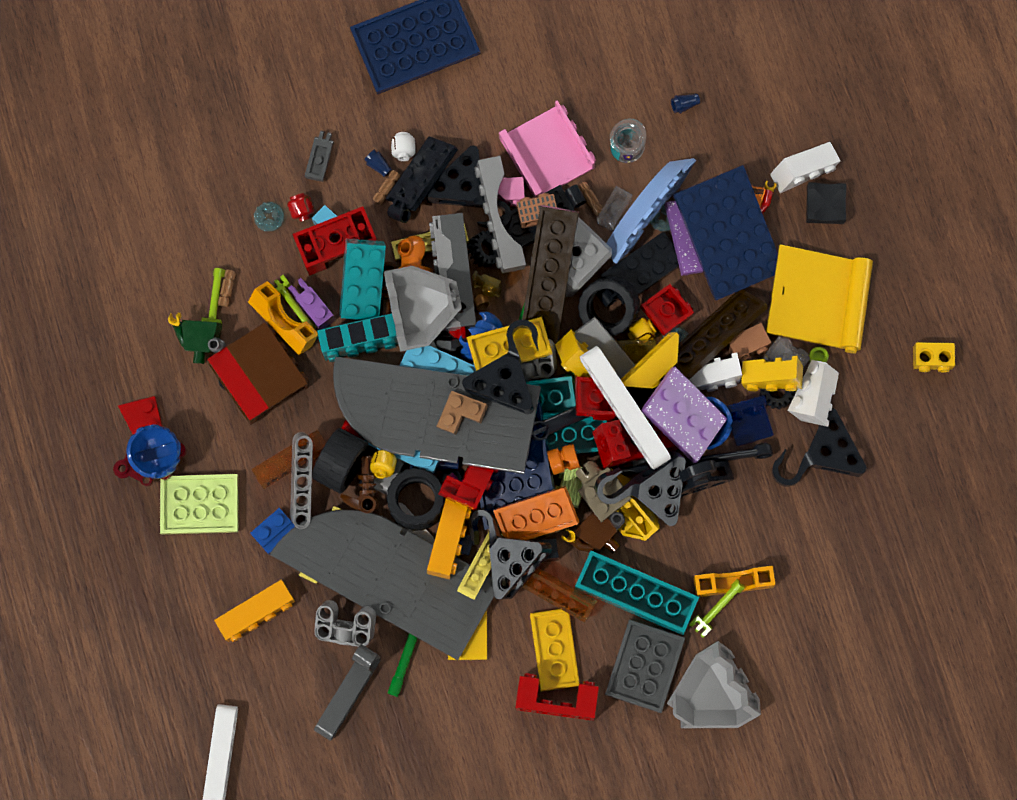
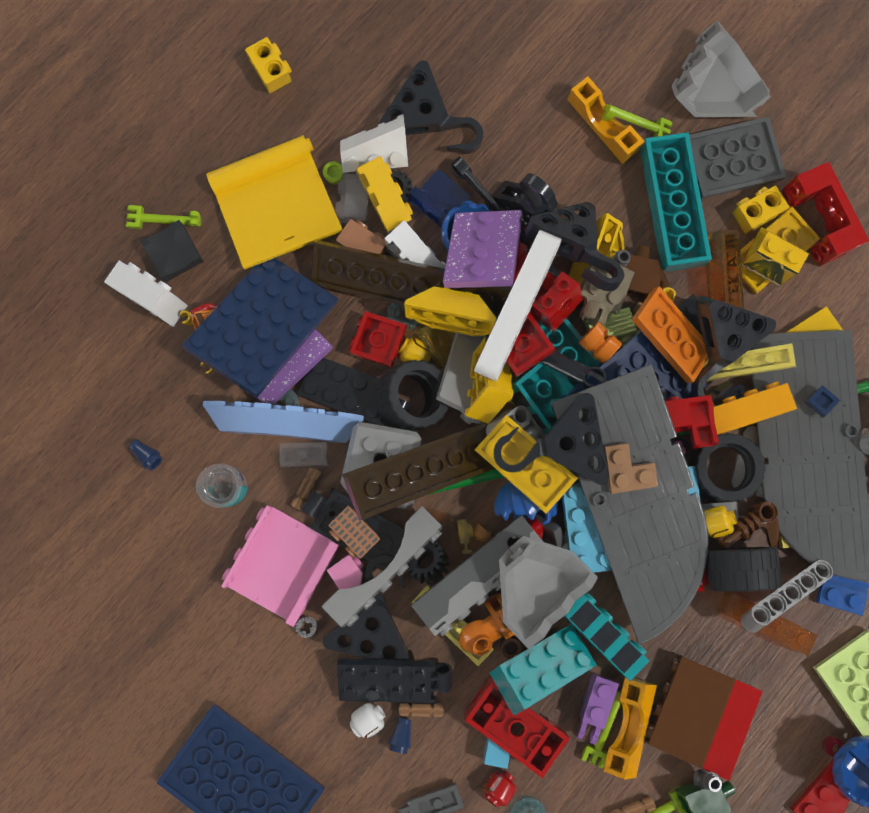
camera: 130 degrees left, 5 degrees up
(419, 598) = (822, 401): none -> dark blue plate
(489, 139) = (299, 624): none -> light grey bush
(550, 638) = (774, 258): none -> yellow slope
(588, 657) = (760, 210): none -> yellow brick
(843, 232) = (140, 217): none -> lime hinge

